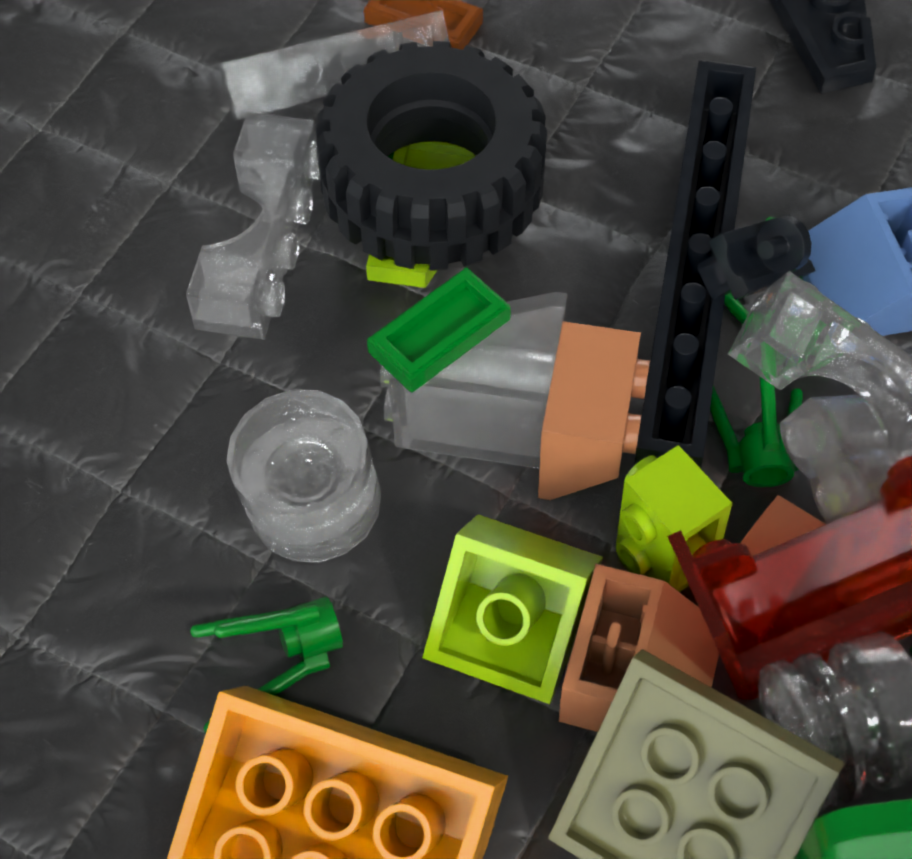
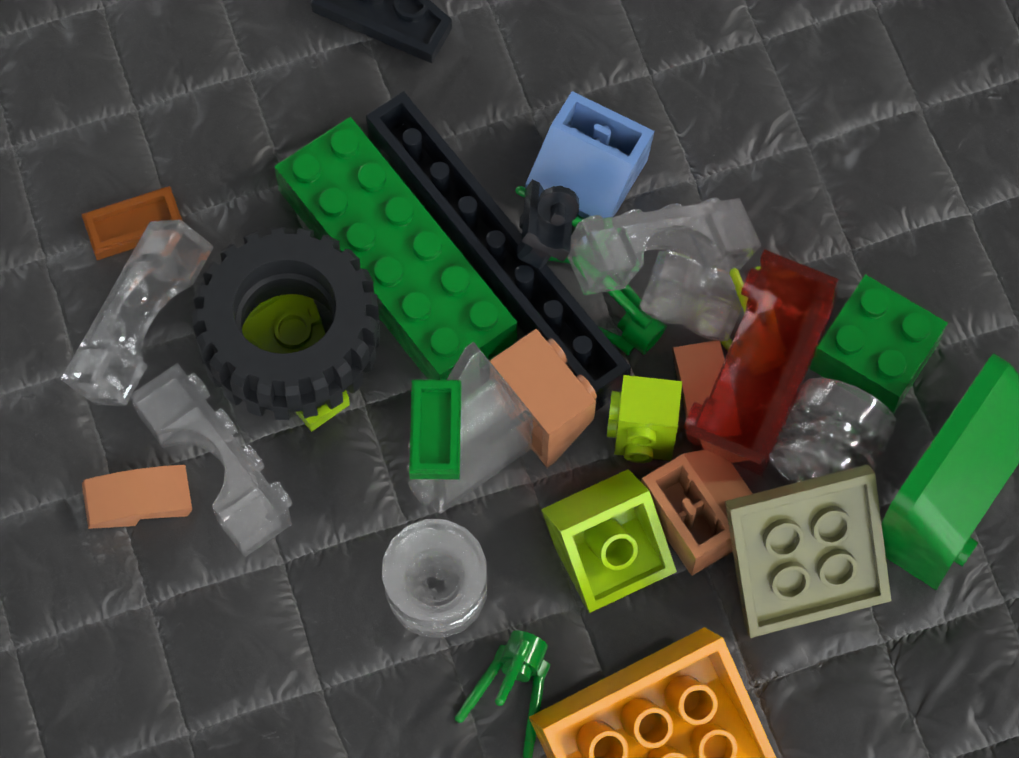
camera: 50 degrees left, 10 degrees up
(171, 200) = (136, 494): none -> nougat slope
(606, 184) = (420, 278): none -> green brick

